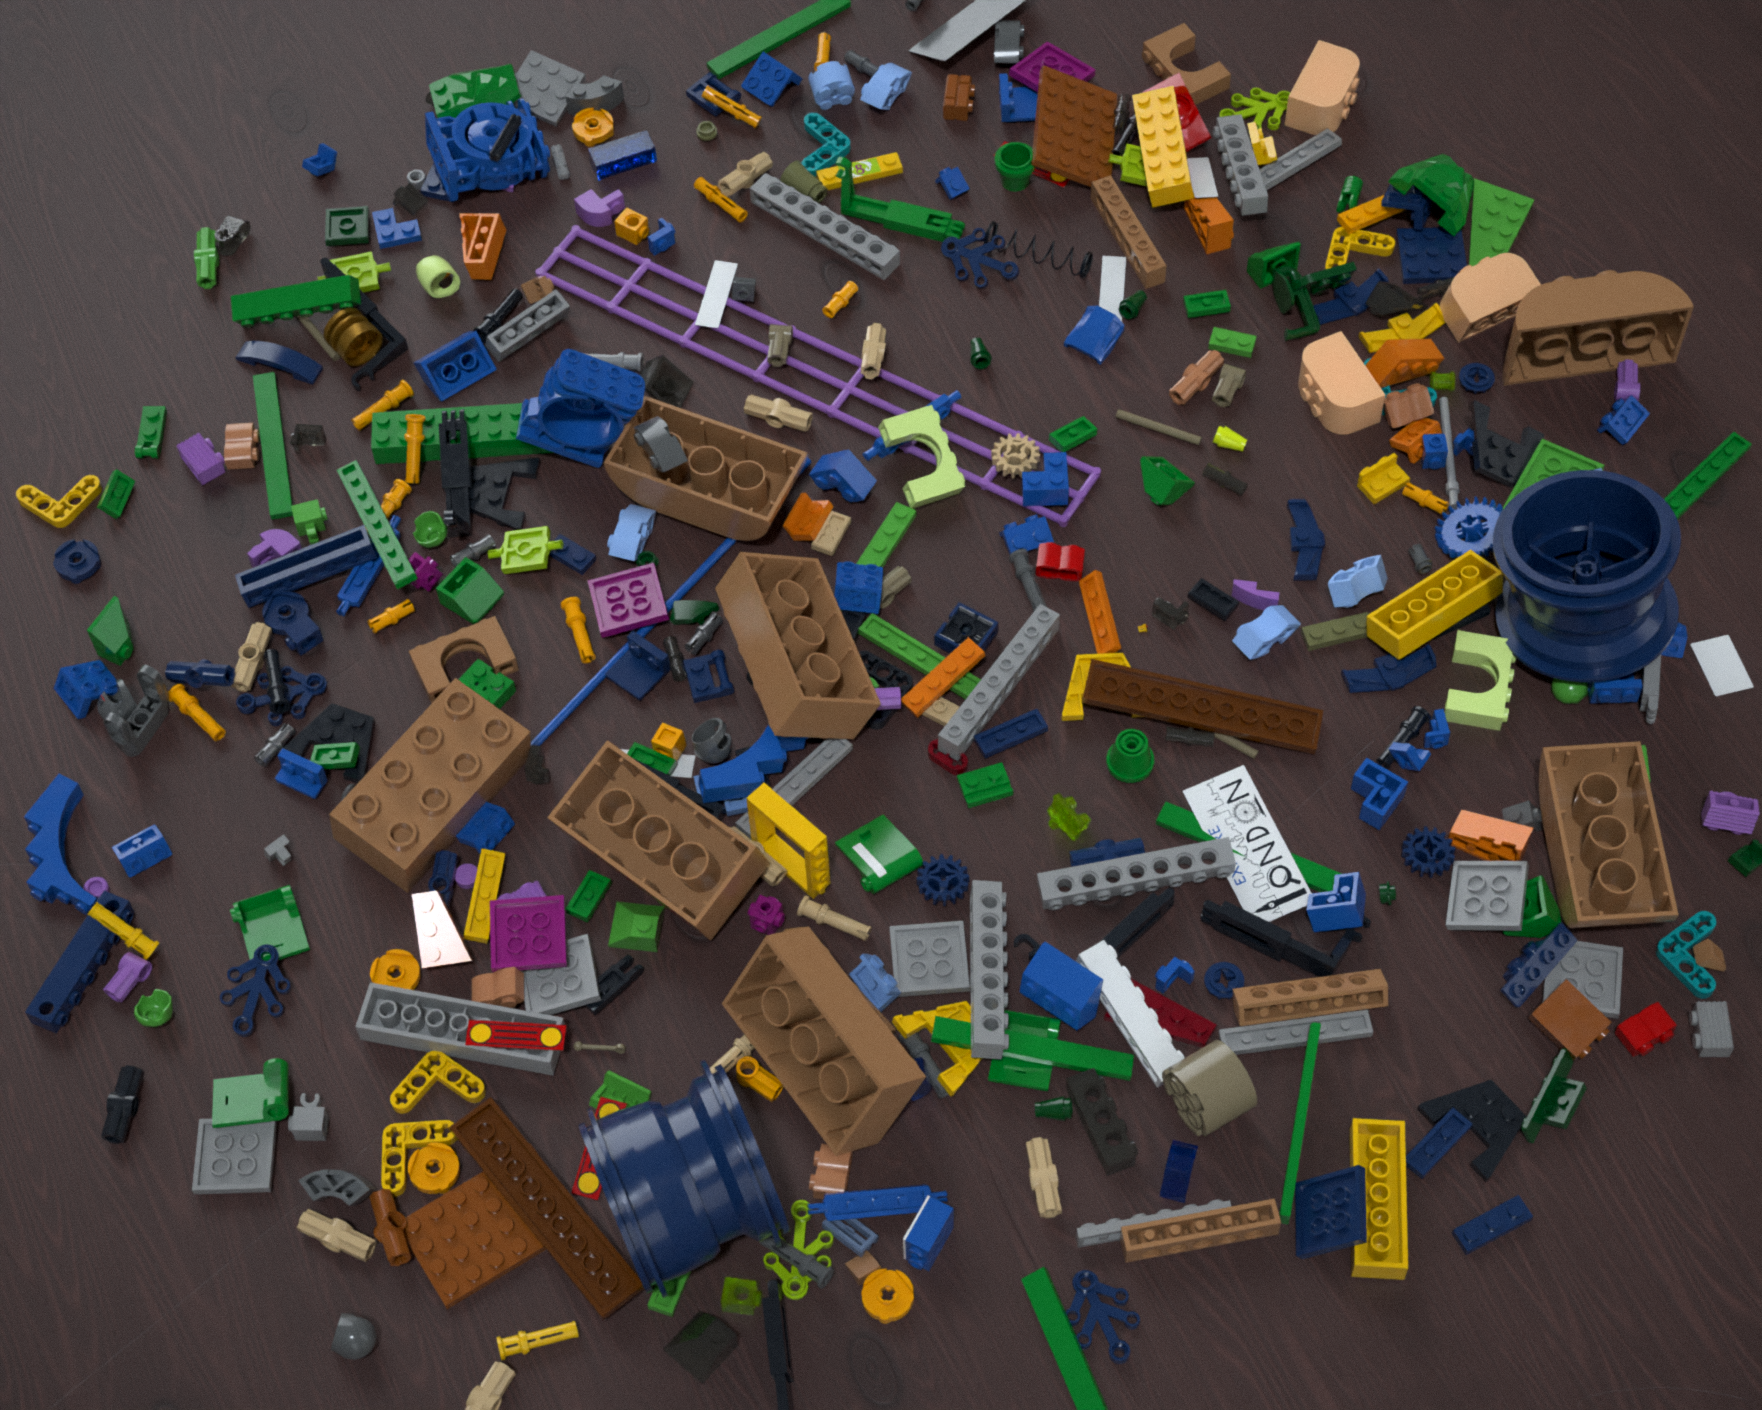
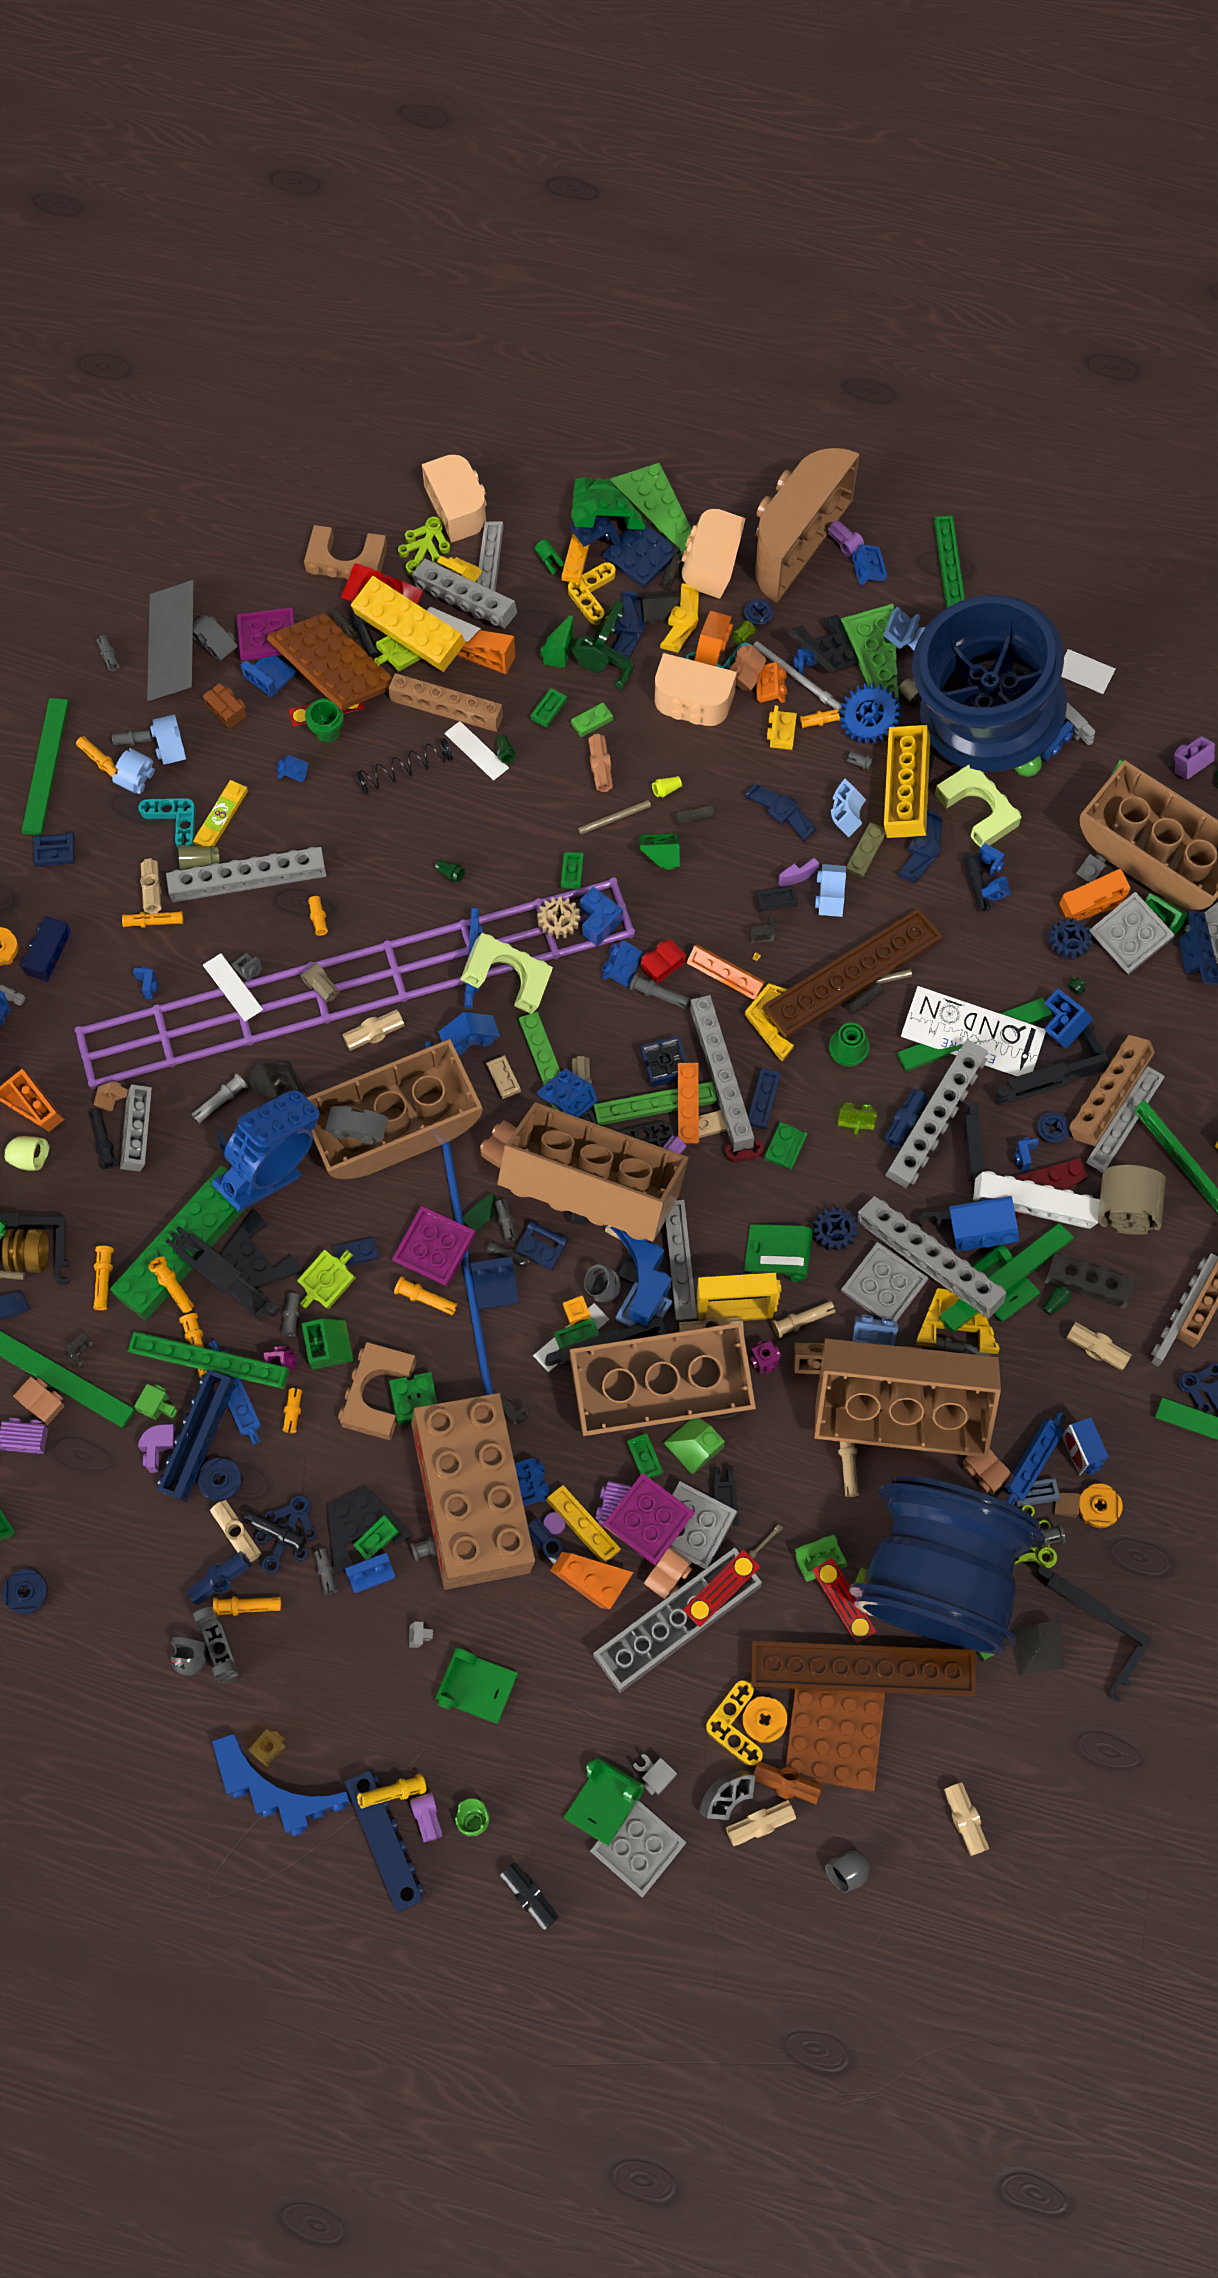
camera: 50 degrees left, 10 degrees up
(84, 683) = (147, 1666): blue bracket -> none
(89, 818) = (258, 1749): none -> clear yellow brick
(96, 886) = (329, 1785): medium lavender tile -> none
(112, 633) = (125, 1615): green slope -> none
(142, 850) = (327, 1729): blue bracket -> none
(256, 986) = (517, 1732): dark blue plant -> none
(302, 635) = (251, 1482): dark blue brick -> none
(393, 960) = (577, 1630): light orange plate -> none
(430, 529) = (247, 1328): bright green hair -> none
(438, 1073) = (695, 1660): yellow beam -> none
(455, 365) = (117, 1201): blue slope -> none
(569, 1331) = (944, 1759): yellow pin -> none
(599, 211) = (78, 1004): medium lavender brick -> none
(631, 532) = (381, 1199): light blue brick -> none
(632, 226) = (111, 987): light orange brick -> none
(647, 556) = (411, 1204): dark green plate -> none
(706, 131) = (82, 879): olive plate -> none
(731, 106) = (89, 845): light orange pin -> none
(735, 1286) = (1023, 1605): clear neon green brick -> none
(760, 1080) = (882, 1460): light orange piece -> none
(769, 79) = (81, 805): blue bracket -> none
(807, 518) = (482, 1080): orange bracket -> none
(873, 351) = (385, 931): tan piece -> none
(896, 214) = (285, 822): green hinge -> none
(977, 256) = (372, 806): dark blue plant -> none
(1095, 333) = (505, 790): blue slope -> none
(1178, 1171) = (1164, 1261): clear blue brick -> none
(1230, 380) = (623, 747): dark tan piece -> none
(1382, 792) = (1008, 925): blue brick -> none
(1434, 451) = (795, 681): blue bracket -> none

